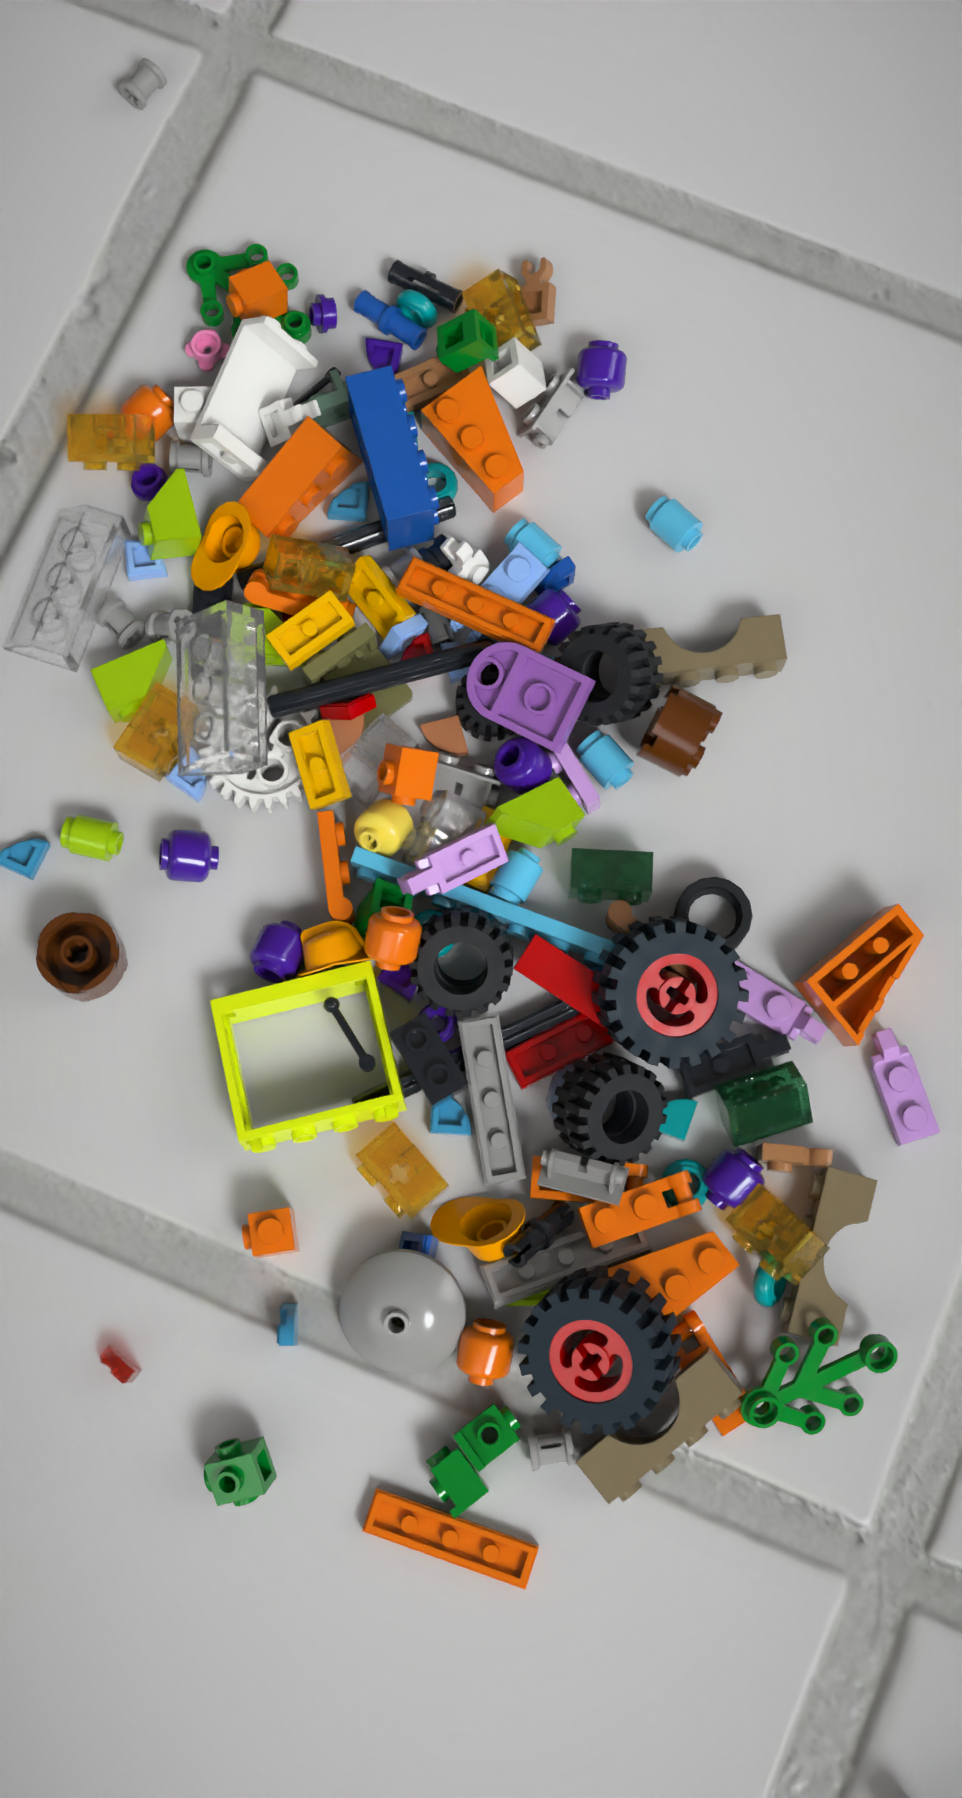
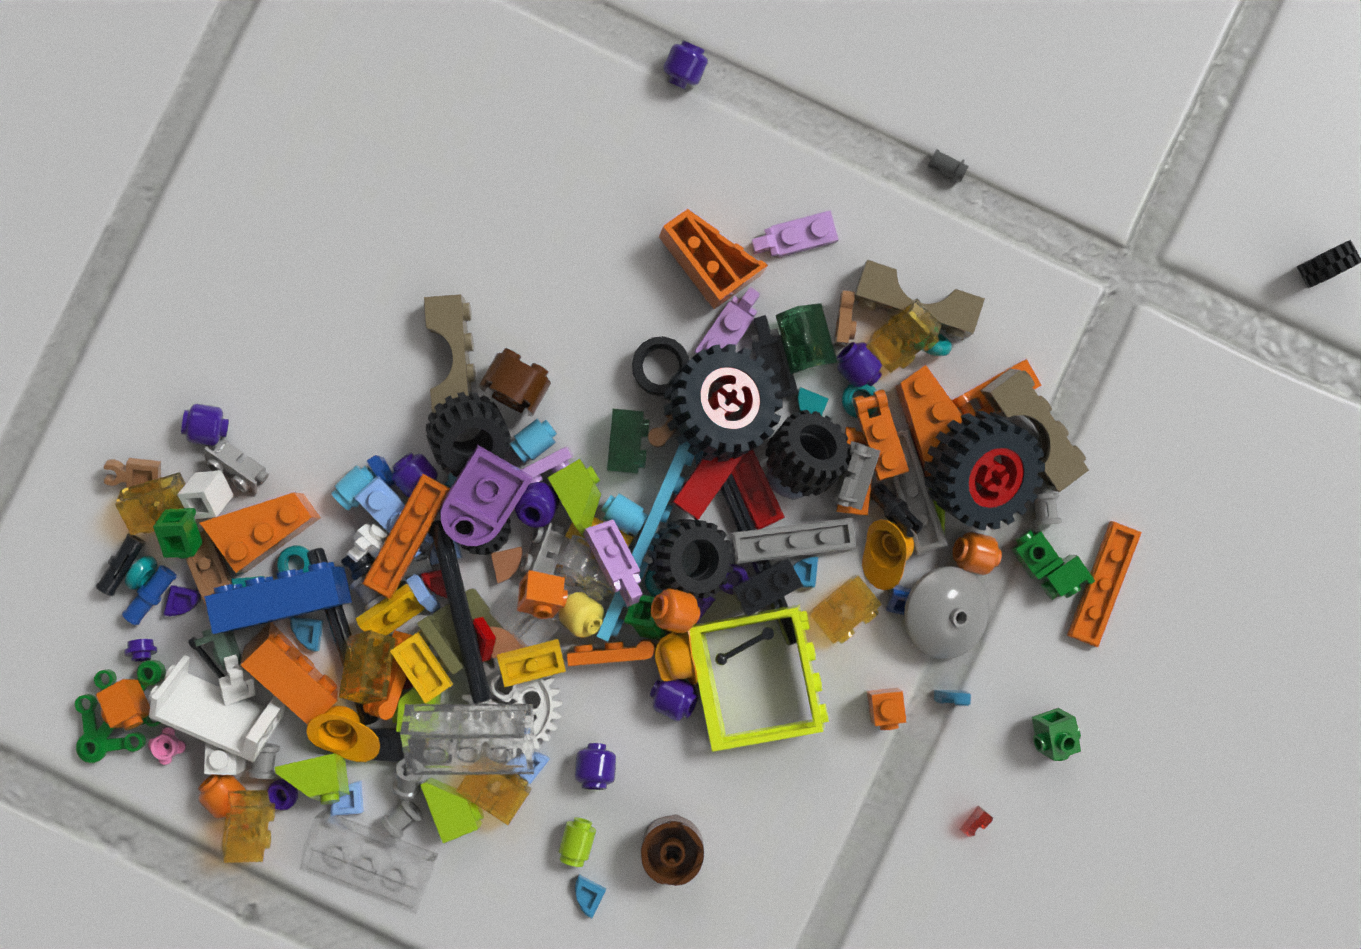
camera: 85 degrees left, 10 degrees up
(674, 524) = (341, 374): medium azure brick -> none
(811, 1380) = (1021, 349): green plant -> none

